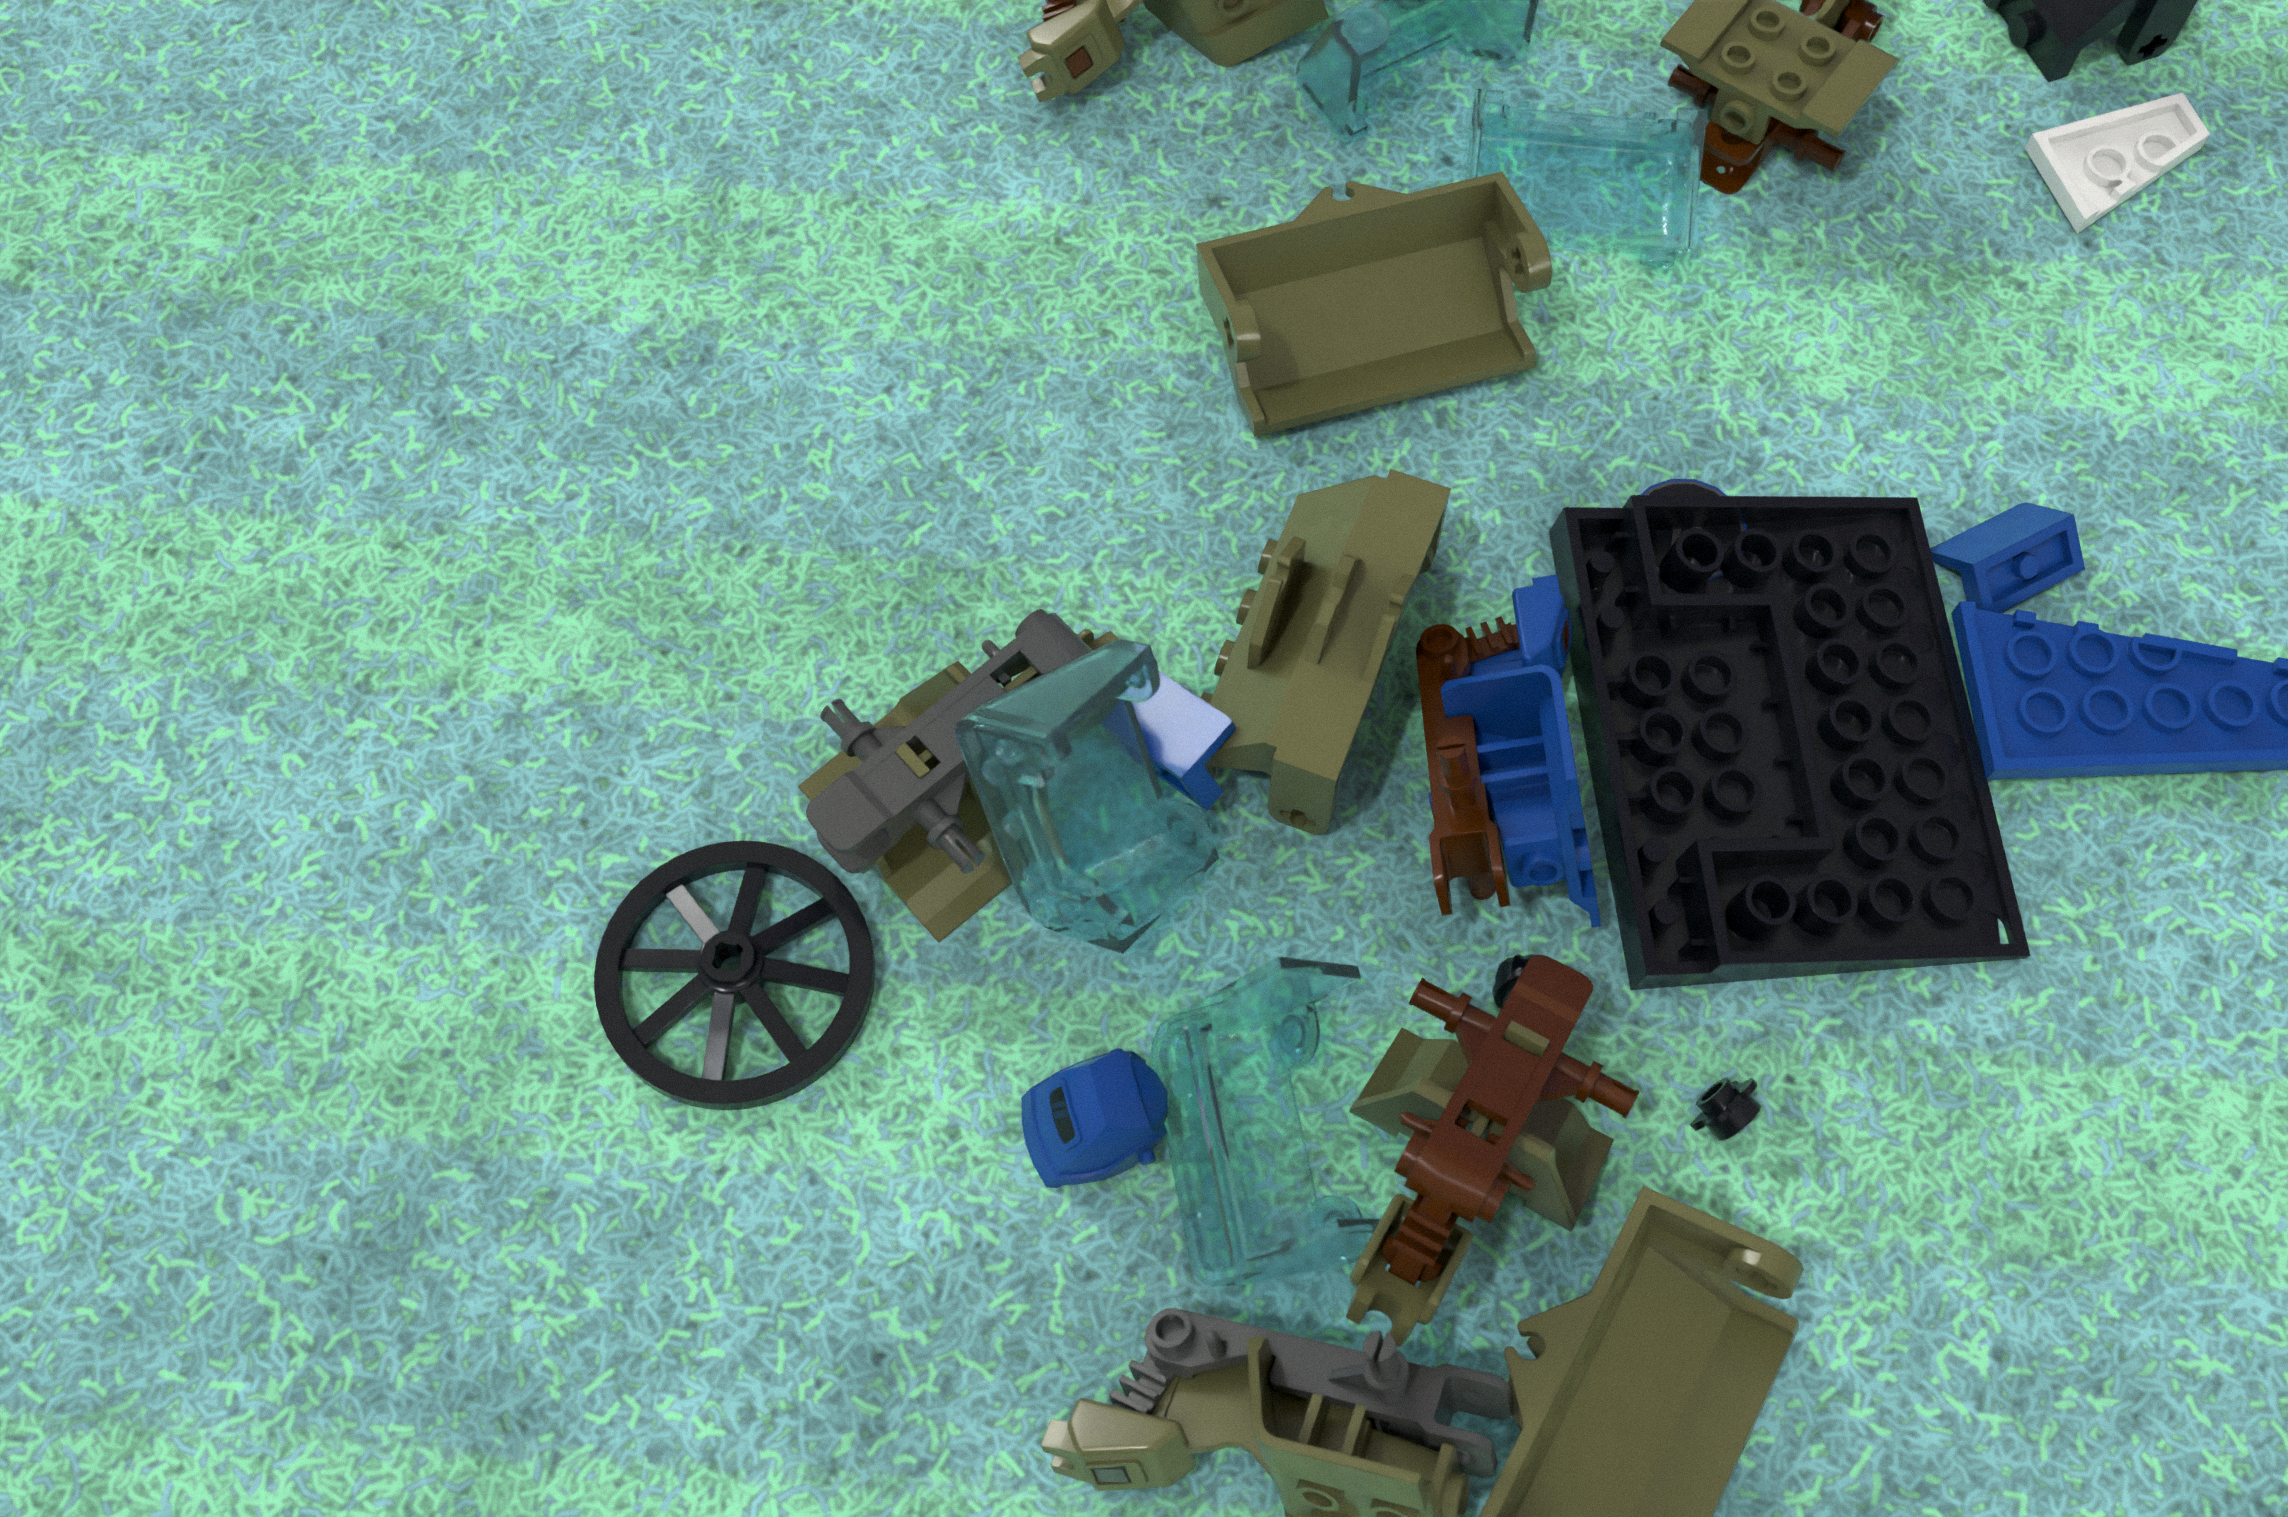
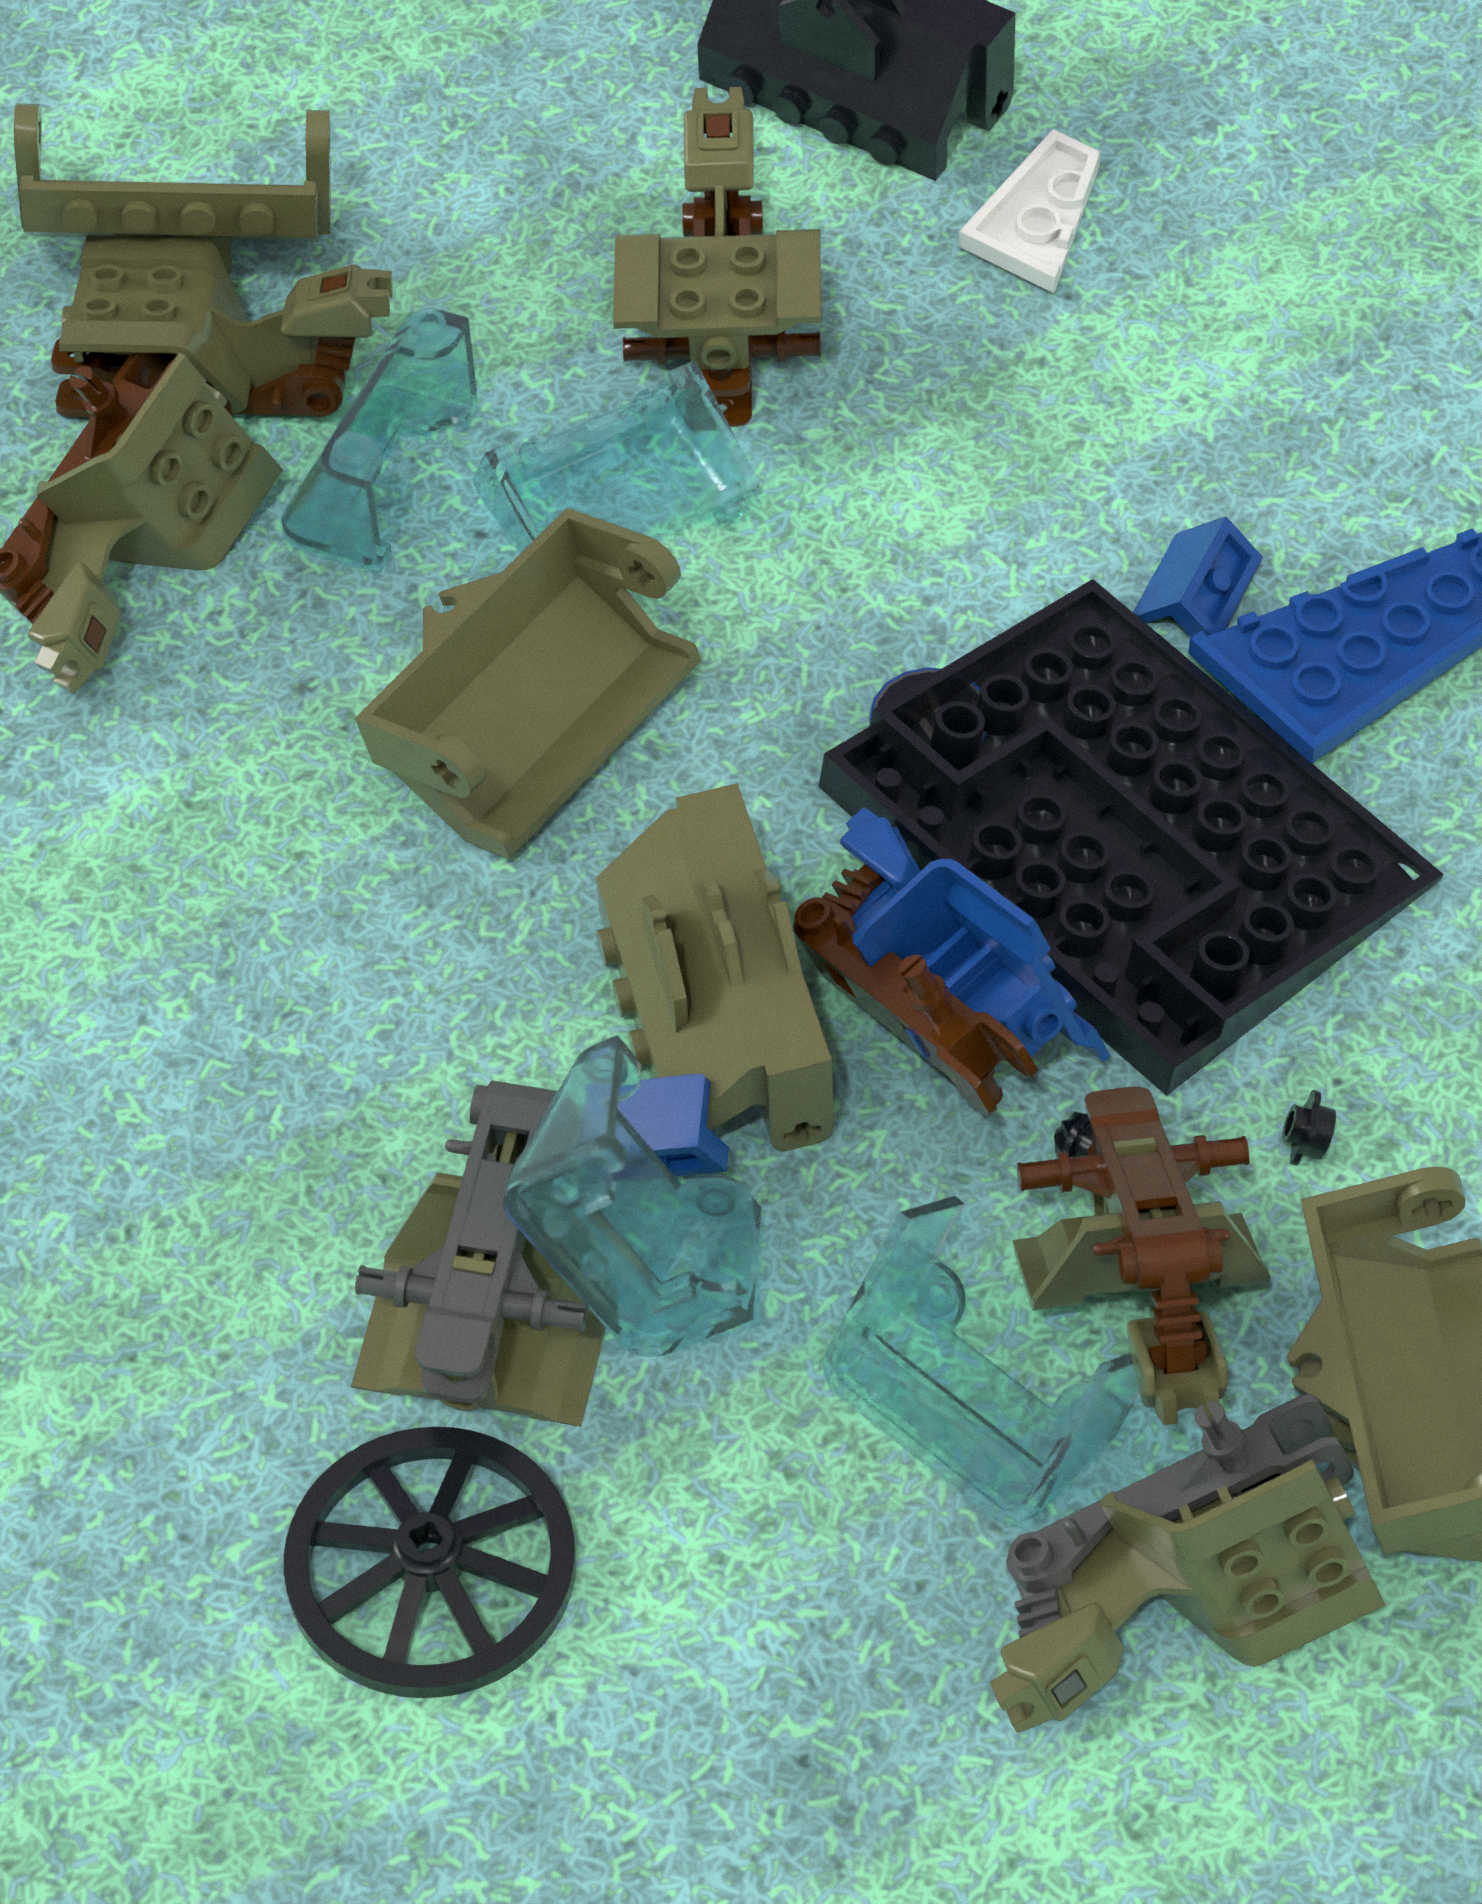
camera: 35 degrees left, 10 degrees down
(1094, 1119) = (829, 1464): blue helmet -> none

